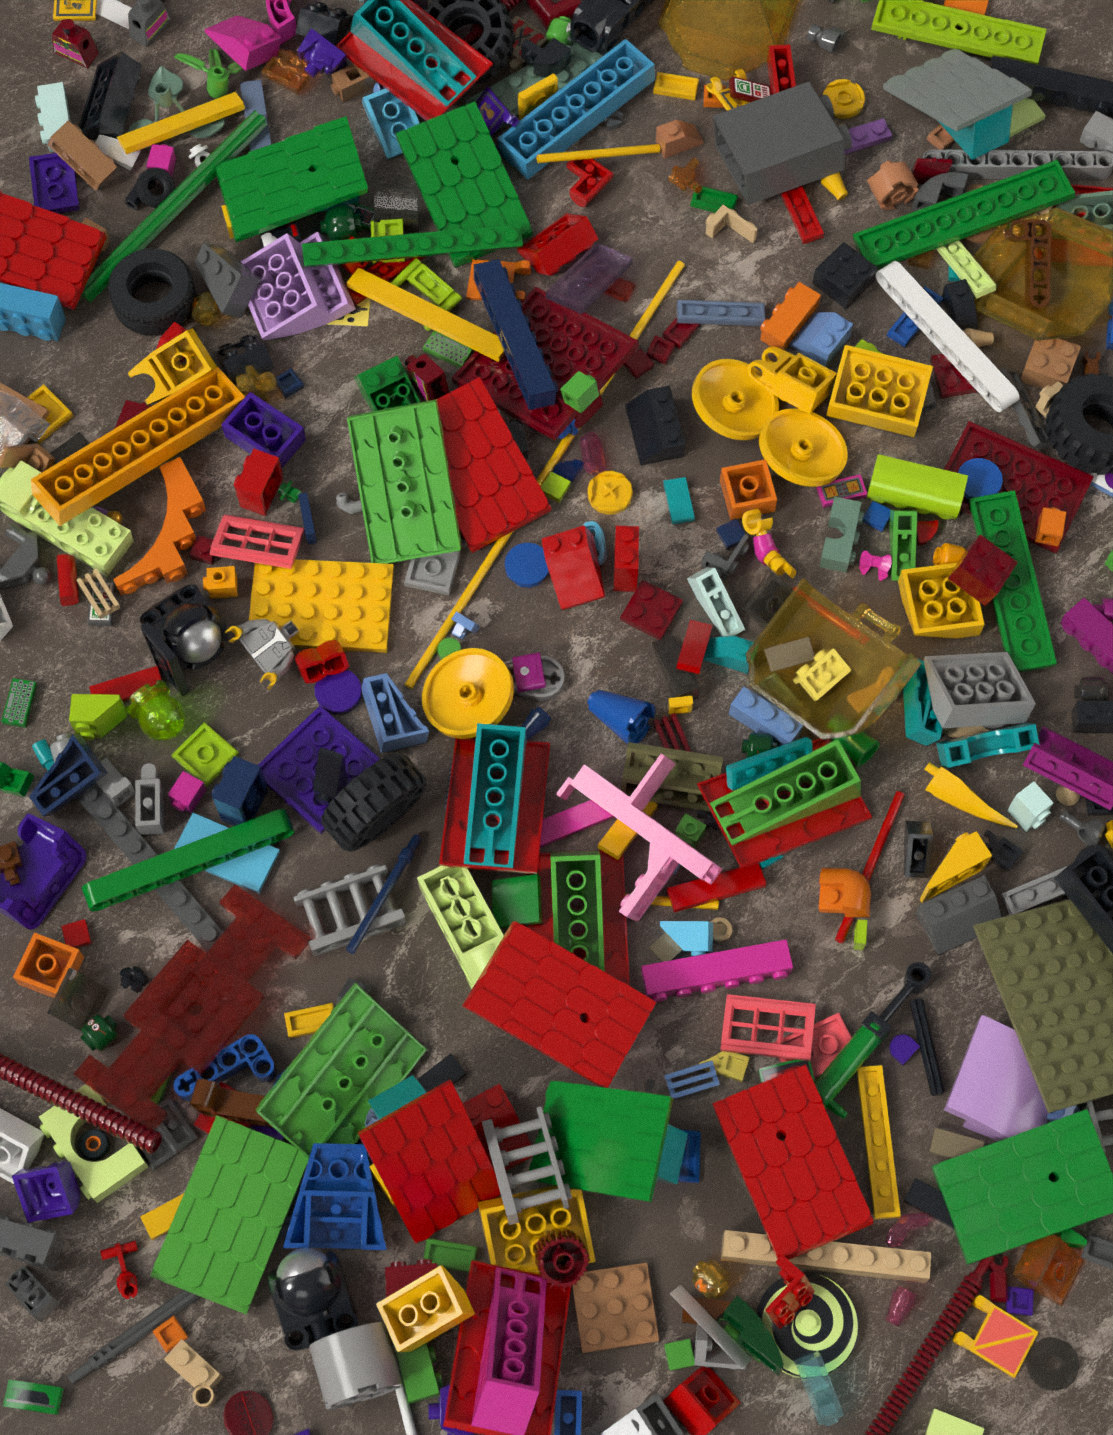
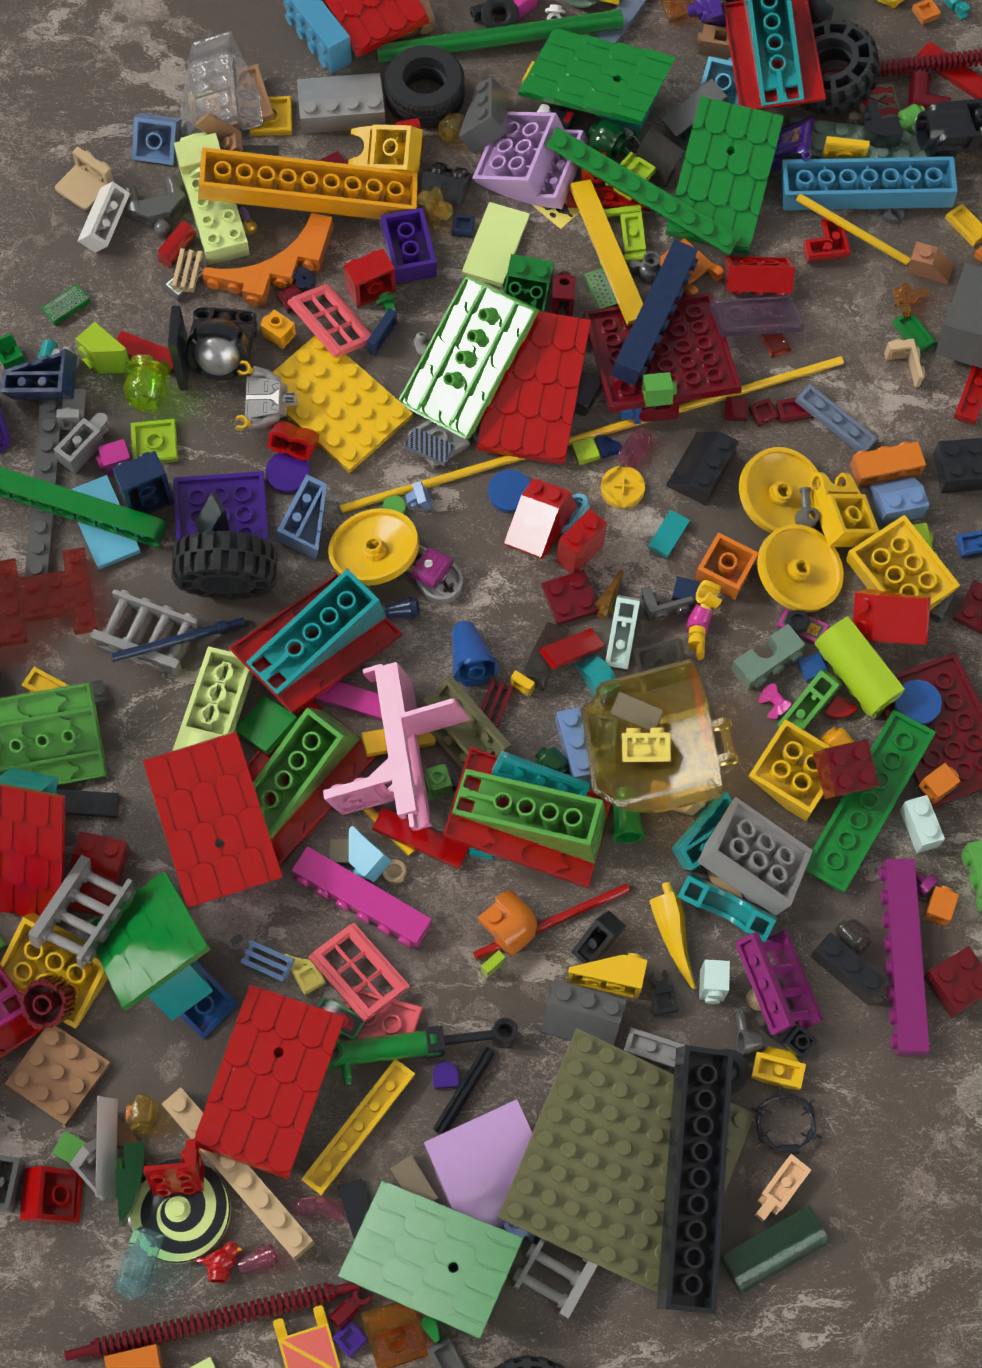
camera: 40 degrees right, 0 degrees up
(91, 357) = (340, 102): none -> light grey slope
(200, 525) = (303, 278): none -> dark blue plant
(329, 378) = (494, 243): none -> yellowish green tile
(388, 157) = (681, 119): none -> dark grey brick
(433, 579) = (429, 446): none -> tile
(470, 304) = (647, 268): none -> dark grey piece
(684, 589) = (607, 601): none -> pearl gold piece
(769, 403) = (802, 516): none -> dark grey bar
(837, 488) = (798, 621): none -> black tile
(875, 1333) = (220, 1262): none -> red animal
(907, 428) = (892, 616): none -> red slope
(1063, 567) = (922, 824): none -> light aqua brick

